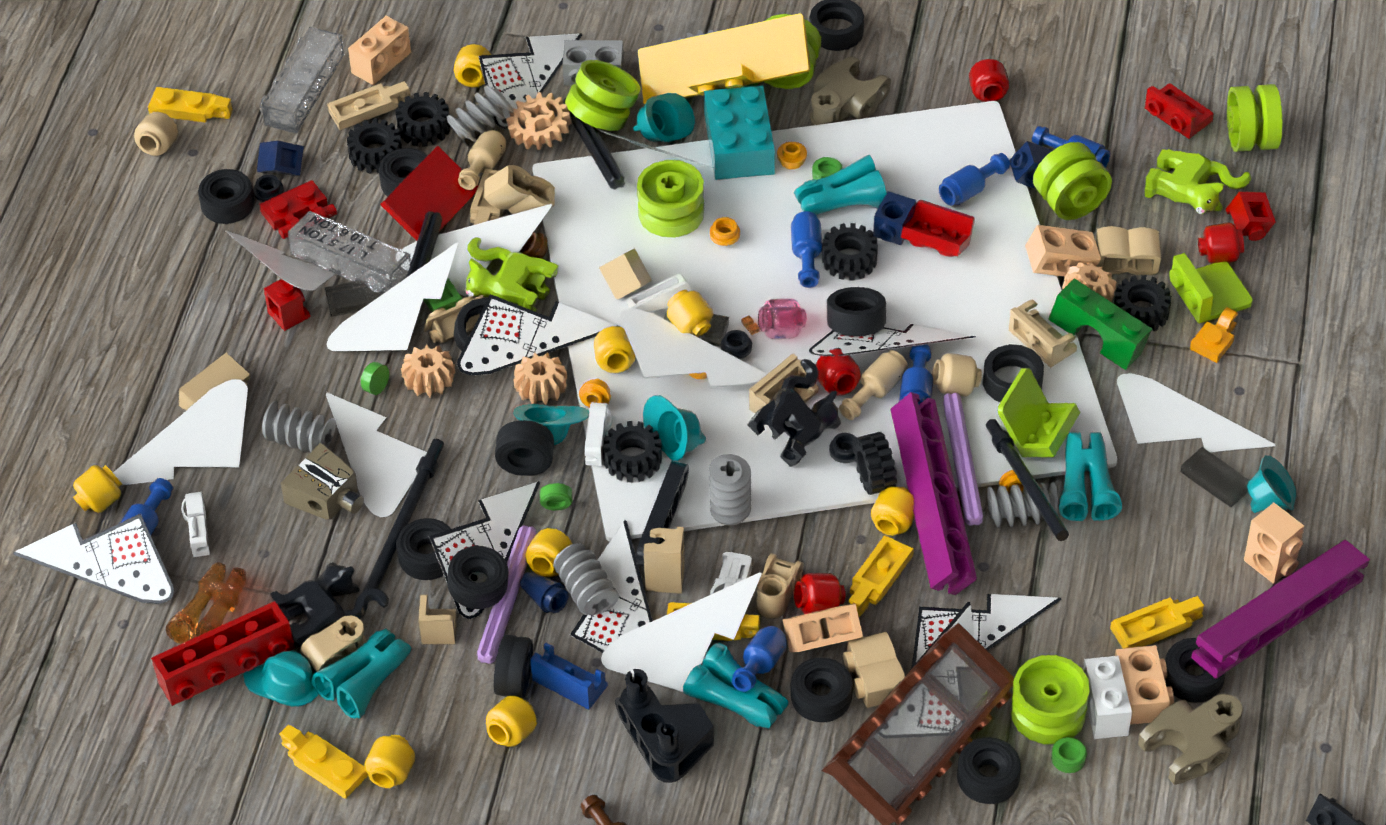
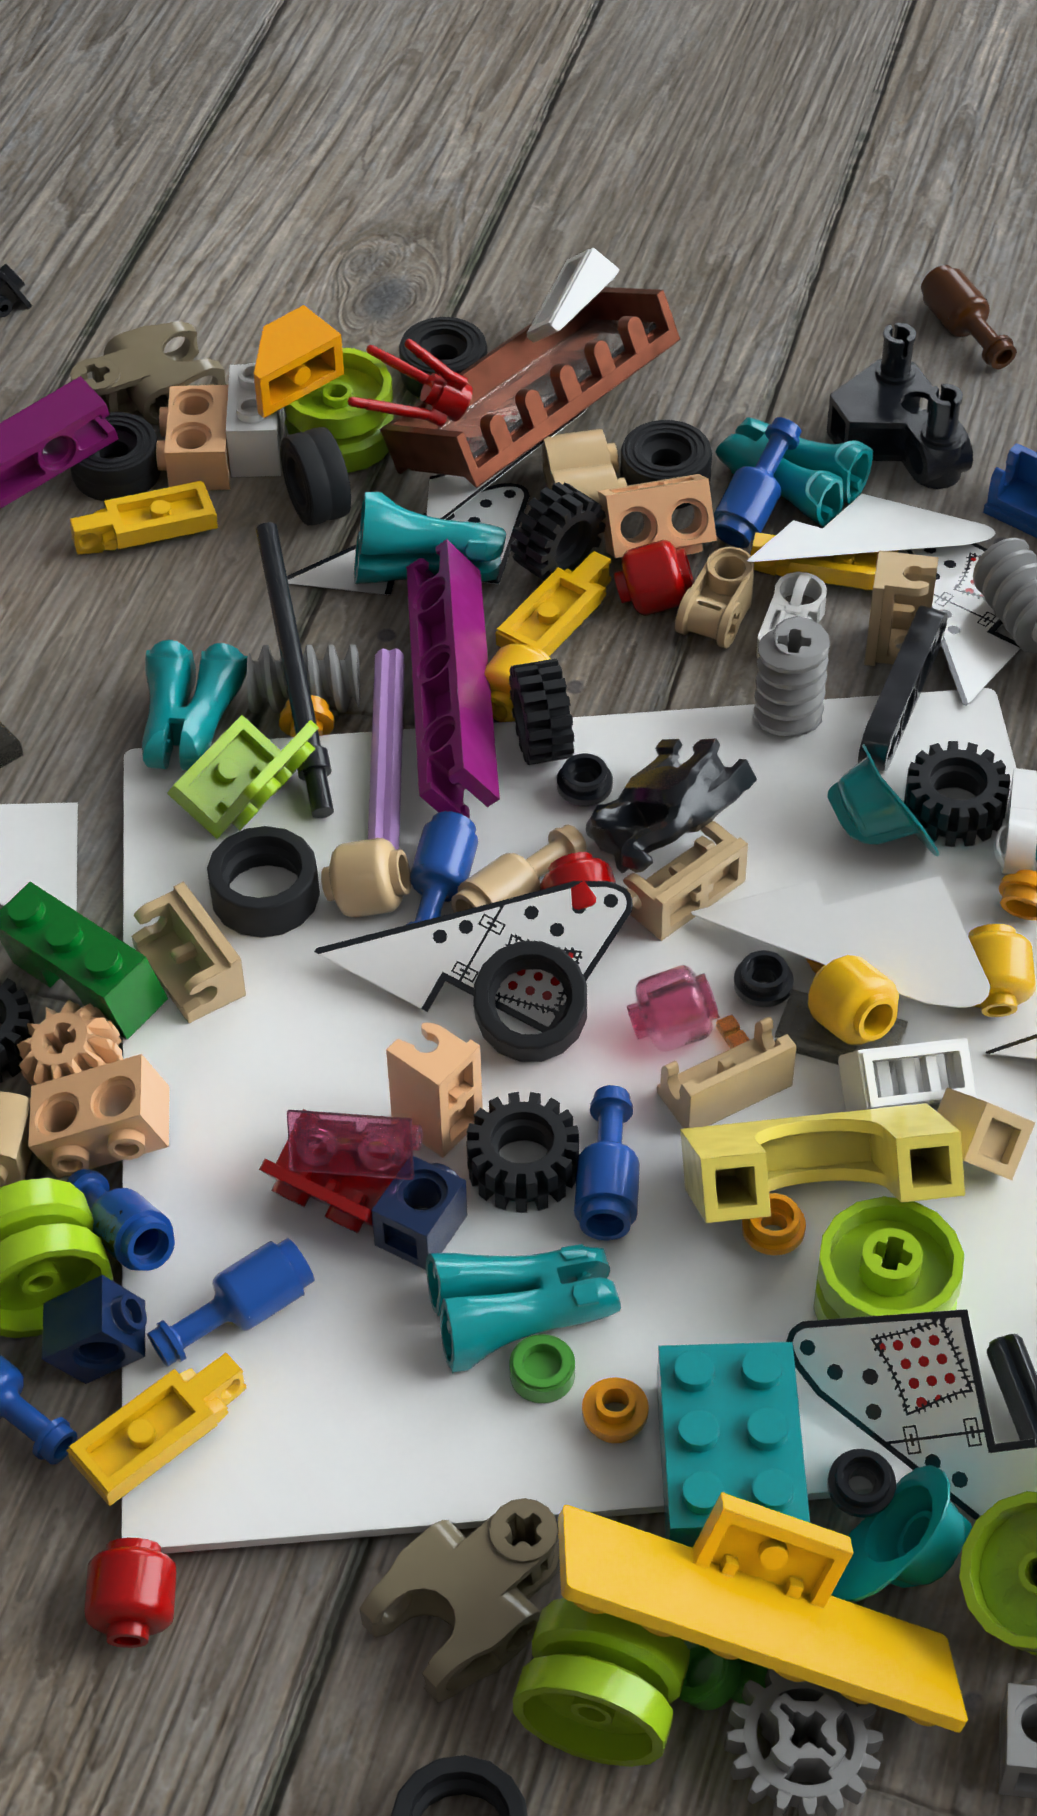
camera: 175 degrees left, 0 degrees up
(681, 135) = (866, 1464): none -> black plate
(747, 241) = (898, 1147): none -> light yellow arch
(750, 289) = (729, 1079): none -> tan hinge
(884, 604) = (557, 530): none -> black tyre
(896, 254) = (436, 1087): none -> light nougat hinge
(898, 779) = (574, 288): none -> white slope
(918, 217) = (352, 1144): none -> clear pink hinge
(978, 688) = (445, 393): none -> red plant
(983, 588) = (397, 537): none -> teal piece
(994, 131) = (155, 1427): none -> yellow hinge
(1032, 199) = (126, 1222): none -> blue piece
(1050, 634) = (315, 476): none -> black tyre
(1080, 678) = (295, 359): none -> light orange slope

